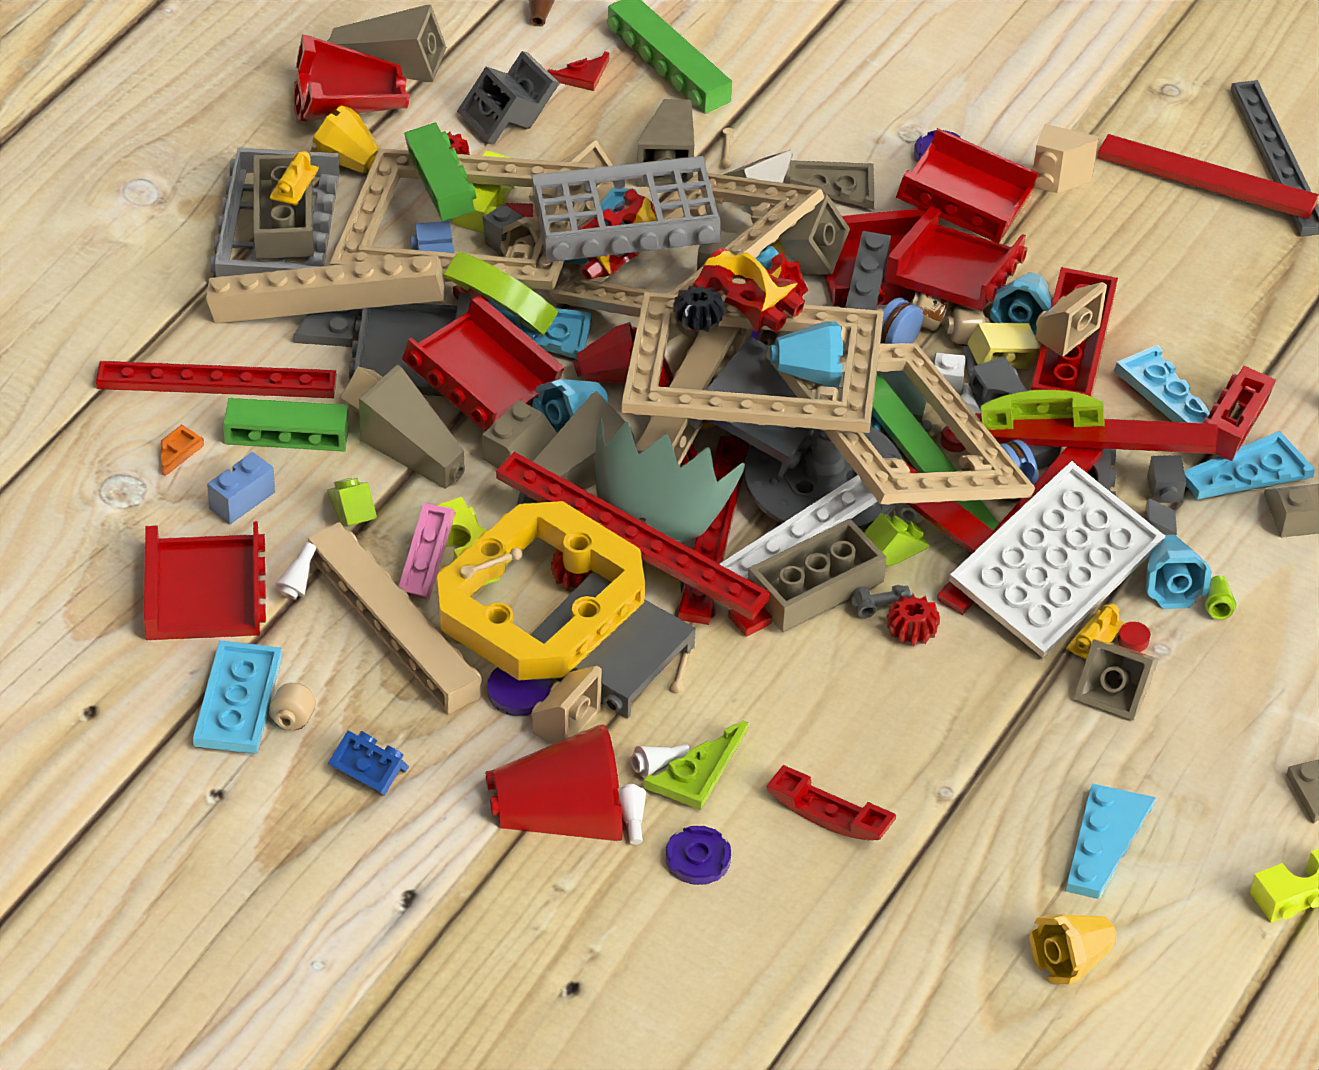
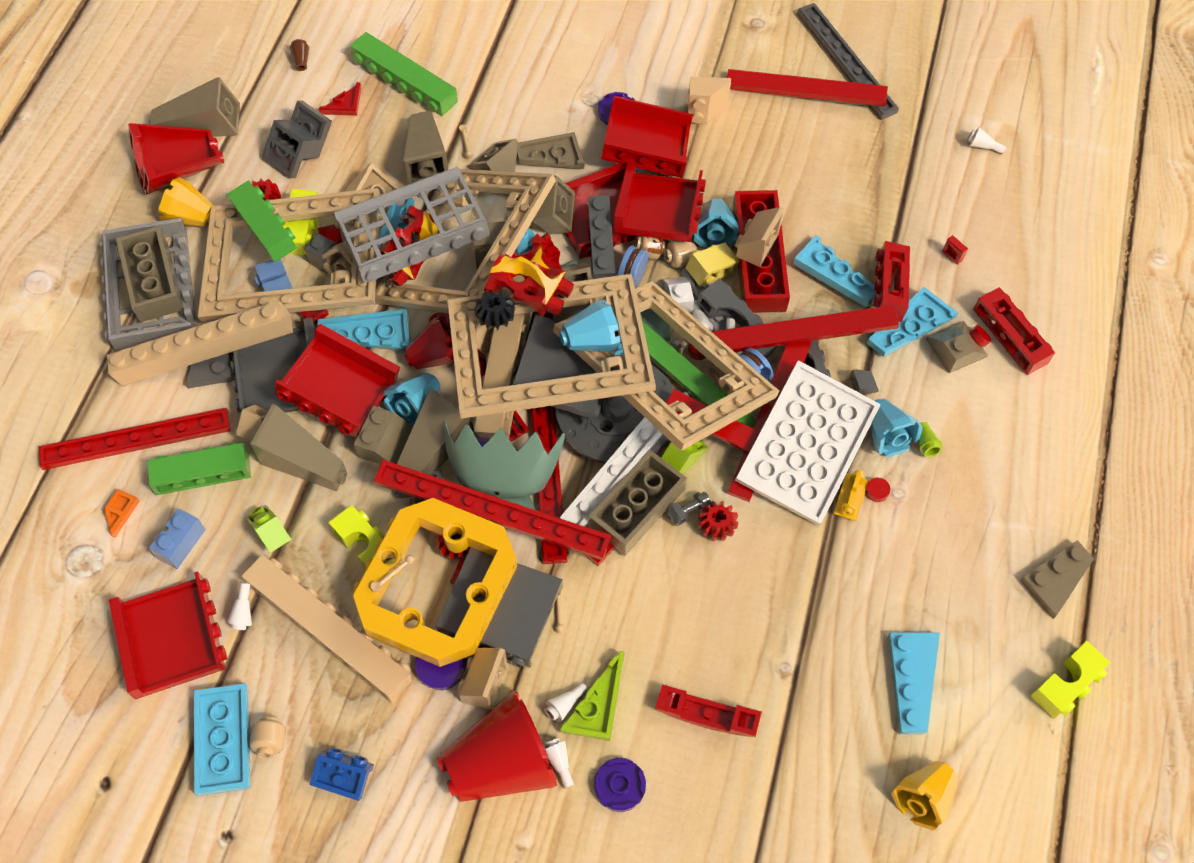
camera: 15 degrees left, 15 degrees up
(295, 179) = (152, 254): yellow hinge -> none
(426, 550) = (337, 562): bright pink plate -> none
(502, 290) = (335, 314): lime slope -> none
(1042, 405) = (794, 315): lime slope -> none
(1115, 678) = (880, 534): dark tan slope -> none
(1166, 478) = (859, 349): dark grey brick -> none

